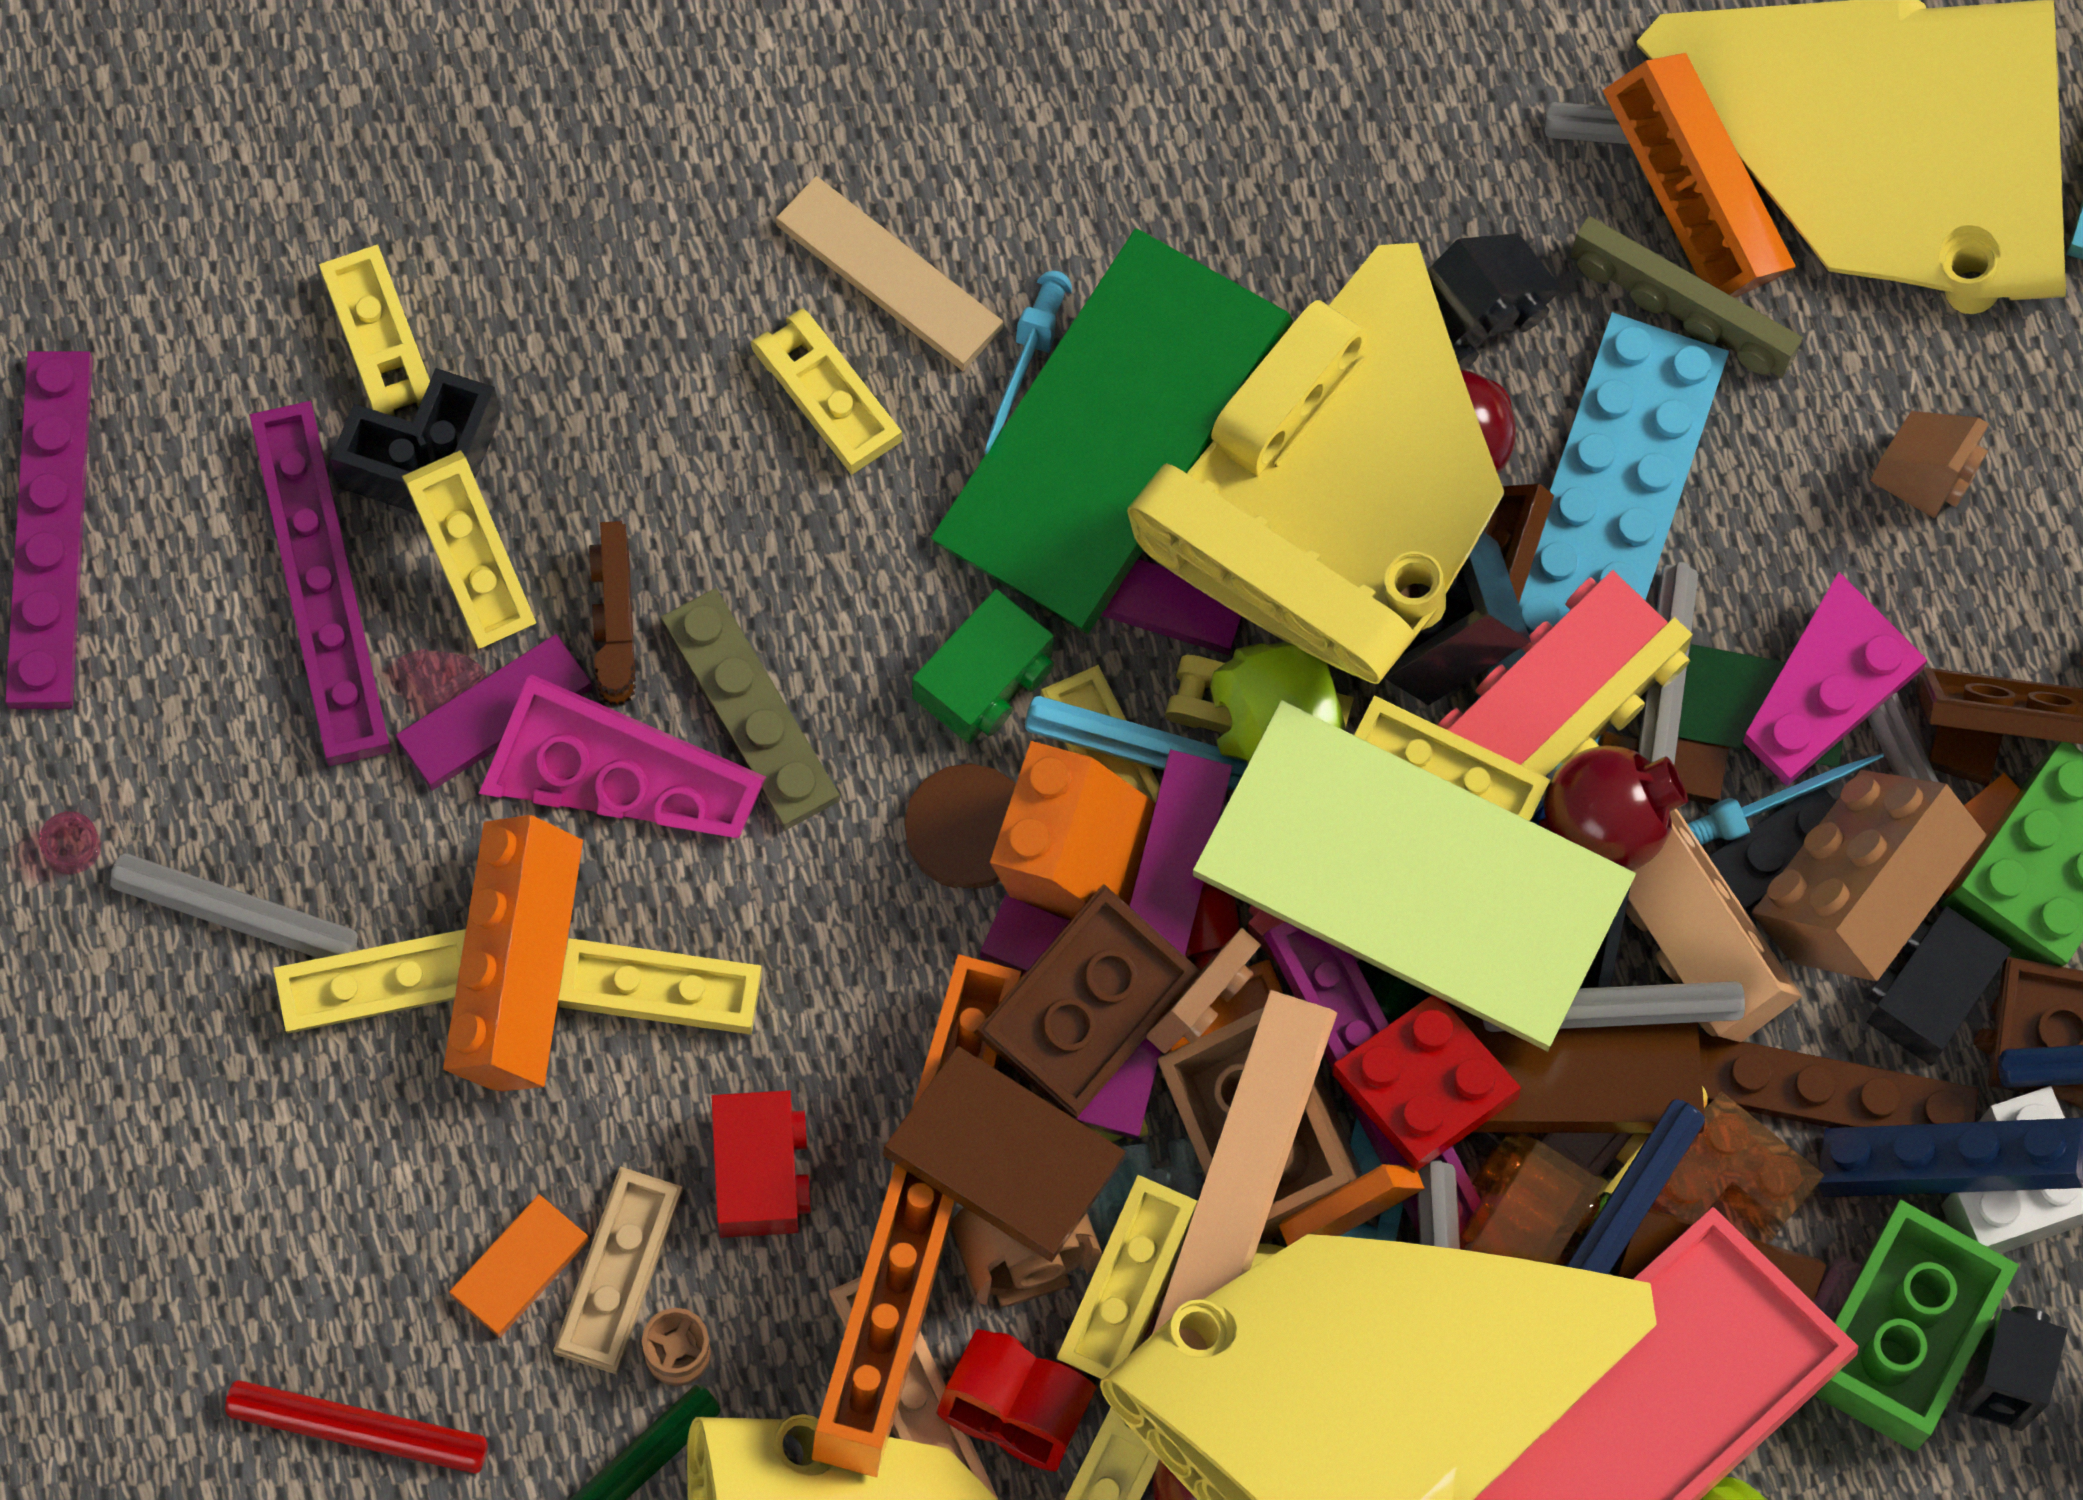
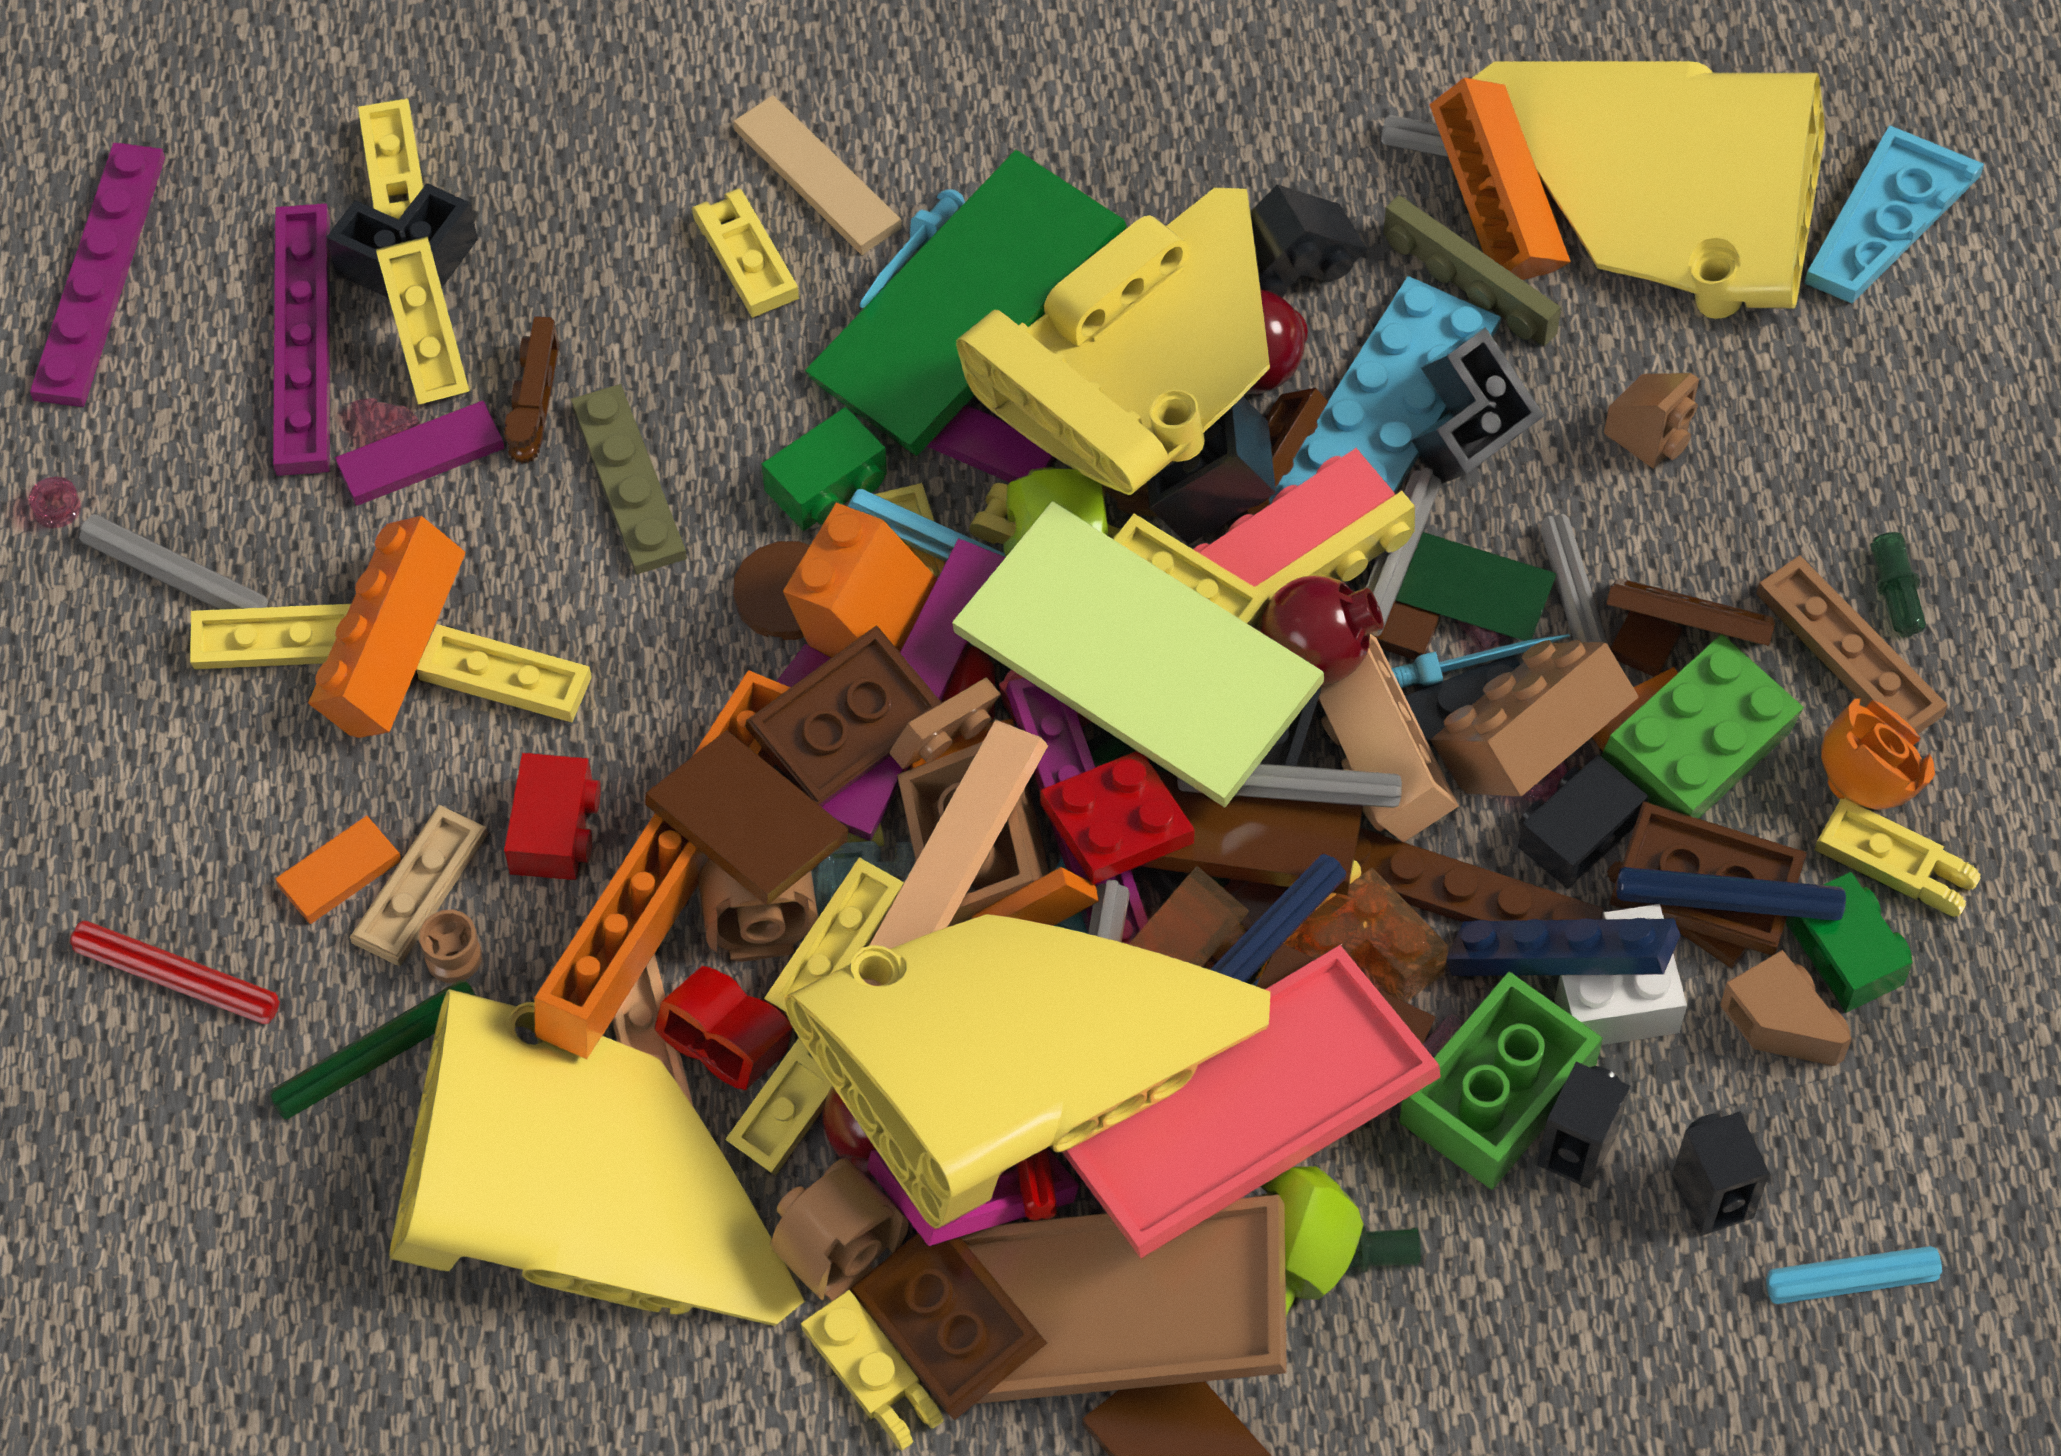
camera: 15 degrees right, 10 degrees down
(615, 766) = (497, 498): dark pink wing -> none
(1739, 483) = (1484, 402): none -> black brick
(1831, 683) = (1534, 573): dark pink wing -> none

